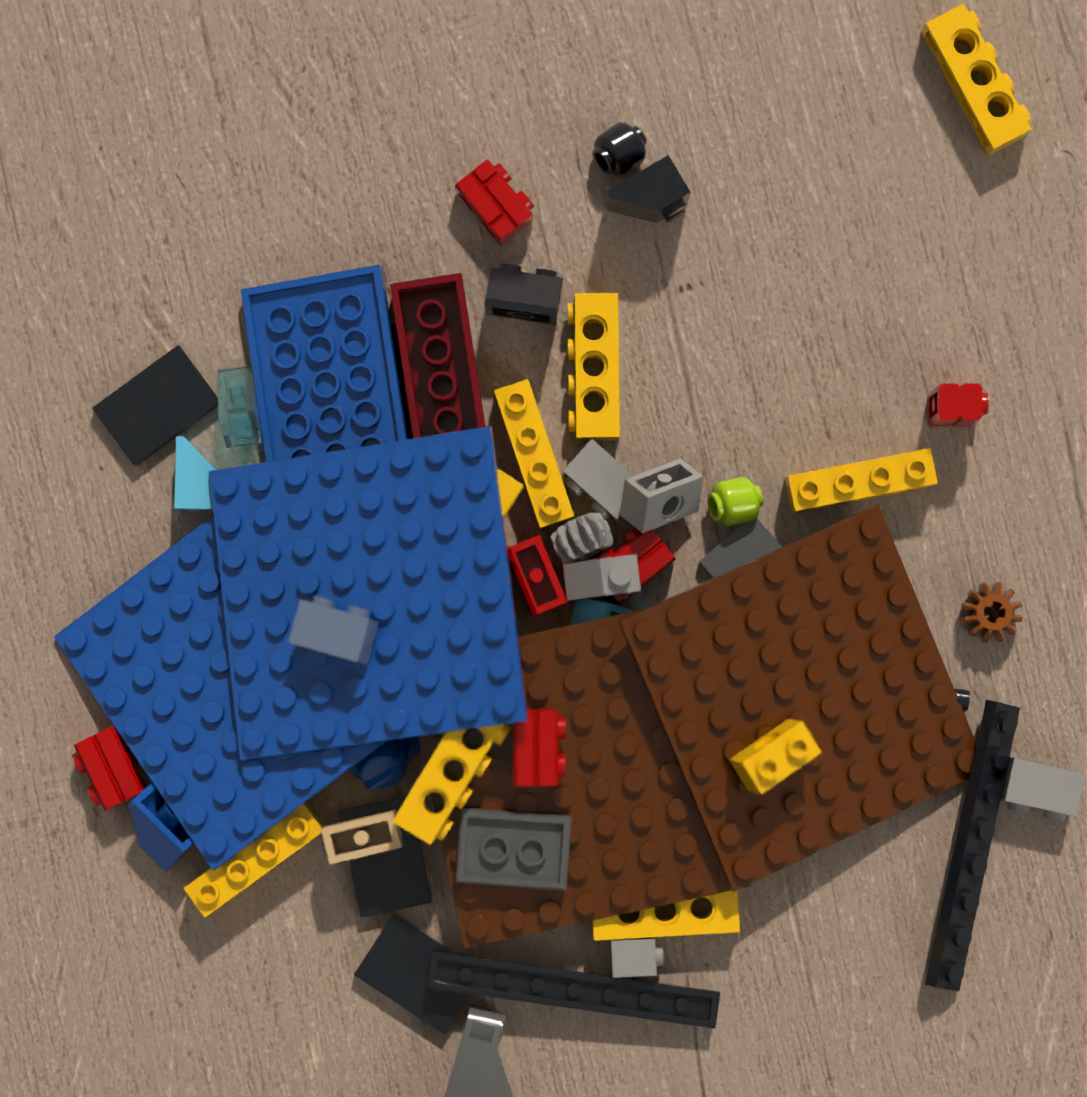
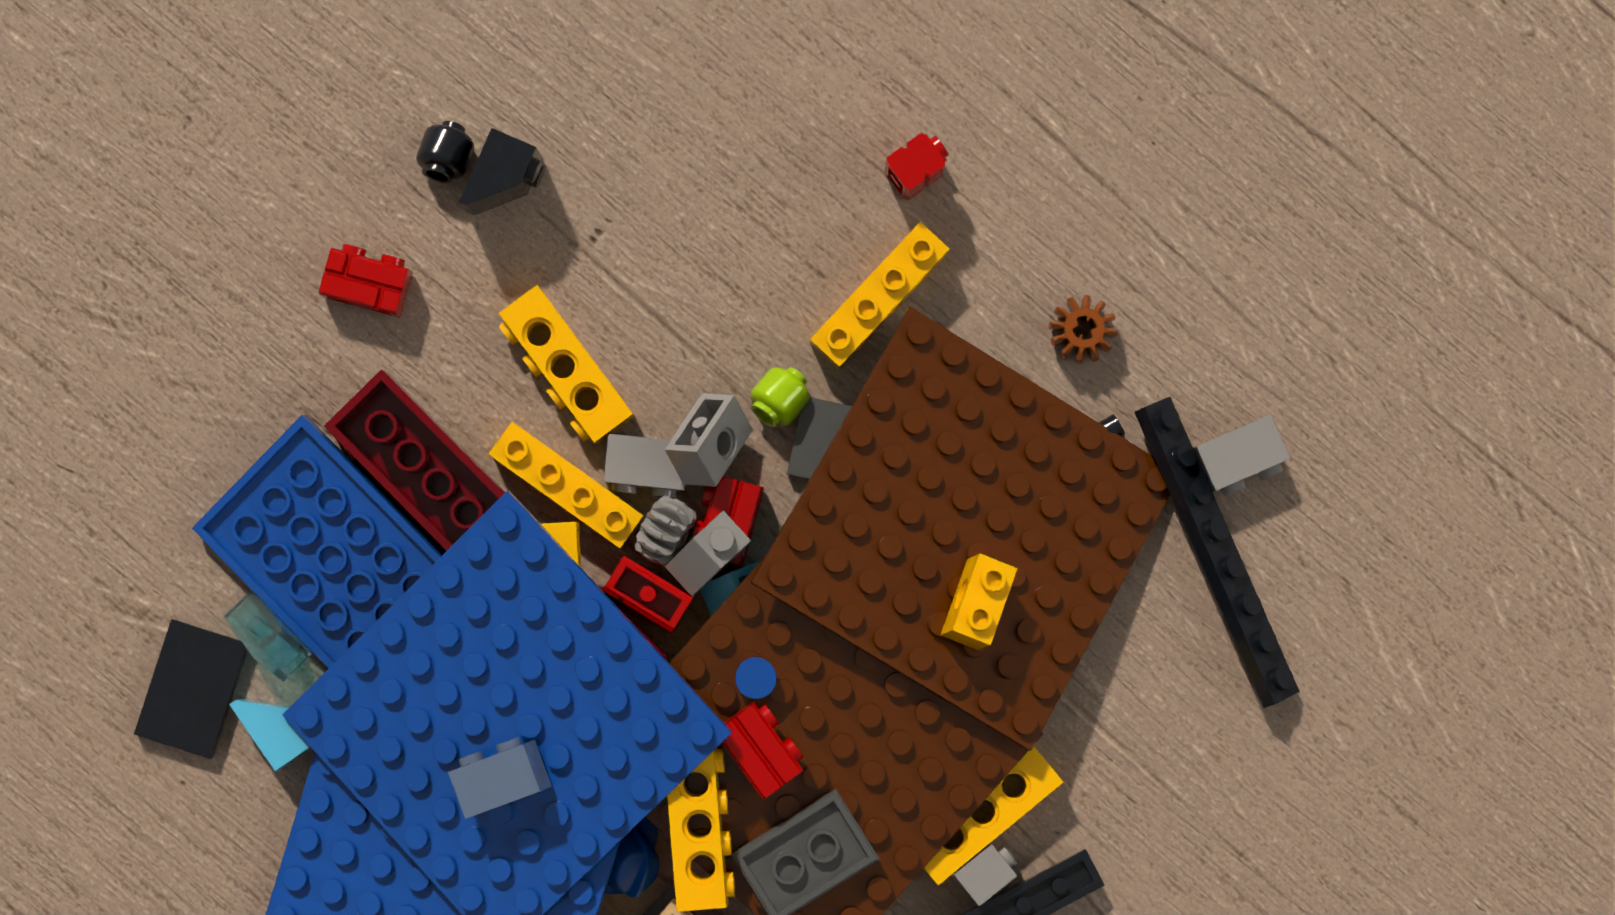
camera: 35 degrees left, 0 degrees up
(524, 294) = (453, 347): black slope -> none
(571, 693) = (755, 677): none -> blue tile

